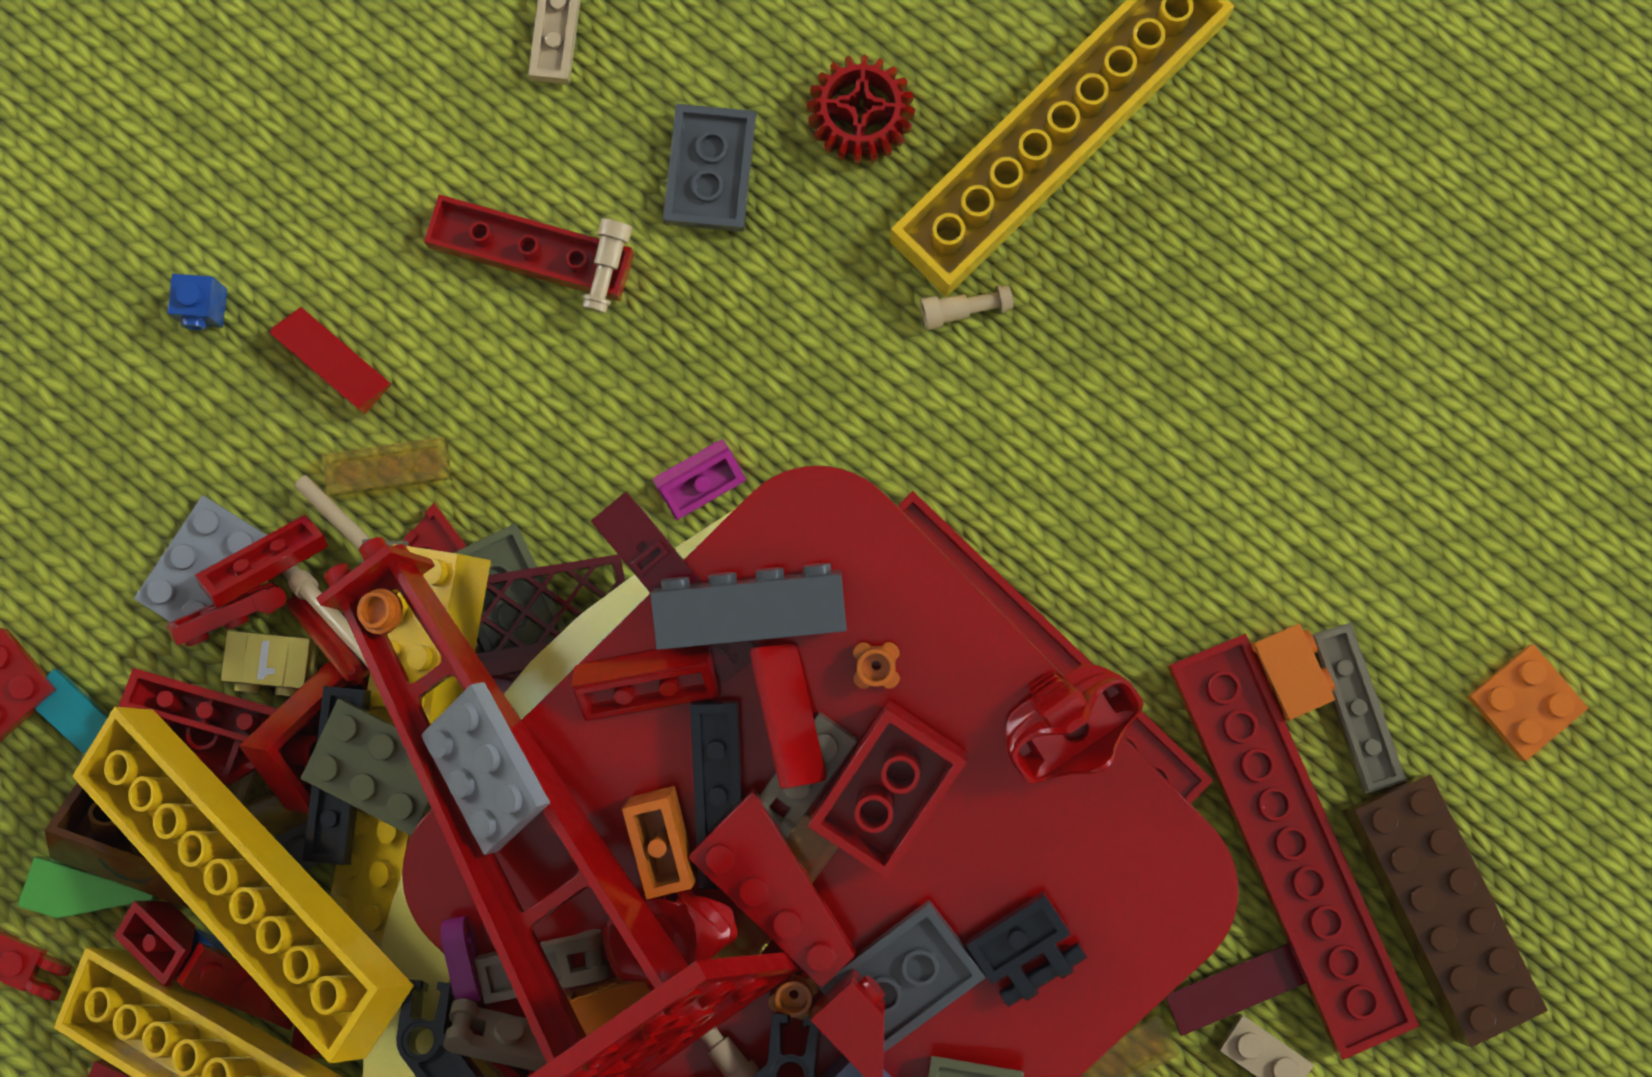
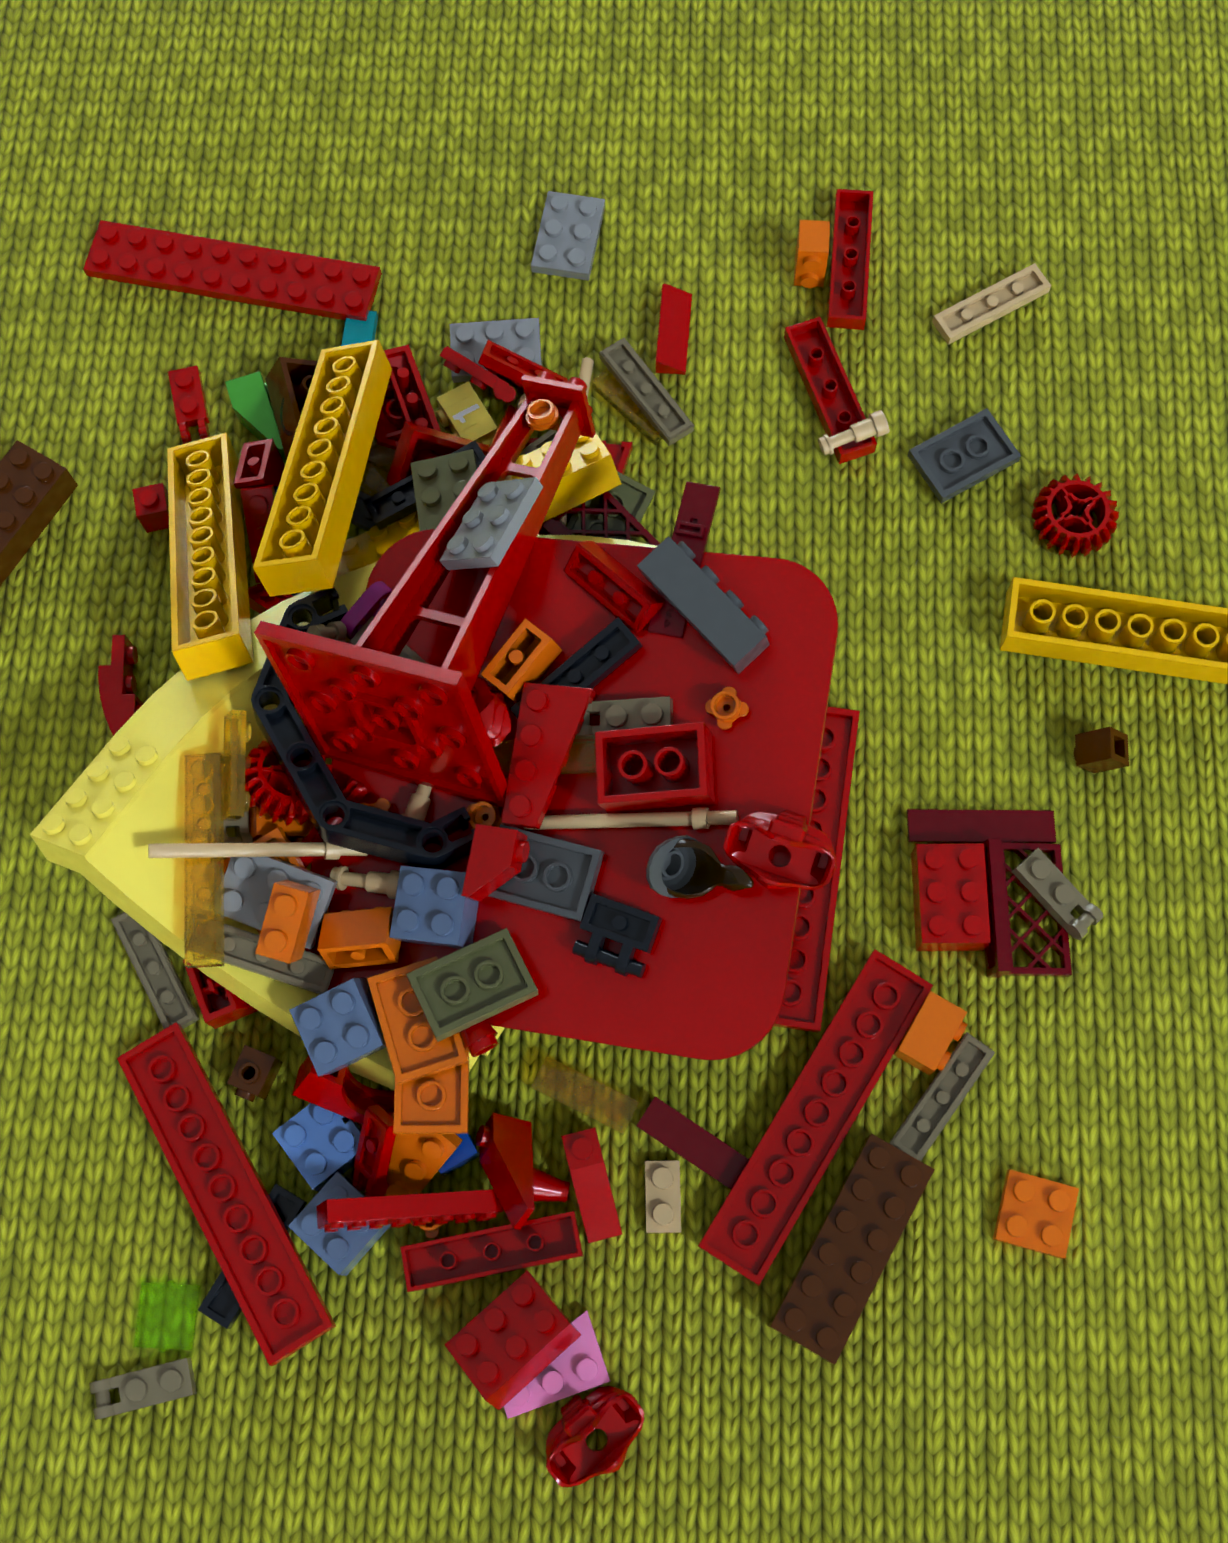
camera: 55 degrees right, 10 degrees down
(122, 388) = (568, 235): none -> light grey plate
(197, 301) = (650, 235): blue brick -> none
(359, 148) = (811, 253): none -> orange brick
(386, 445) = (646, 391): none -> dark tan tile
(391, 108) = (850, 259): none -> red piece
(788, 716) = (654, 674): red slope -> none
(959, 307) = (999, 660): tan piece -> none
(969, 780) = (697, 818): none -> tan bar
(1021, 829) = (691, 869): none -> piece
(1116, 460) = (980, 825): none -> dark red piece
(1129, 283) = (1101, 750): none -> reddish brown brick
(1171, 549) = (950, 897): none -> red brick
(1218, 515) = (999, 952): none -> dark red fence
(1239, 441) = (1057, 894): none -> dark tan plate

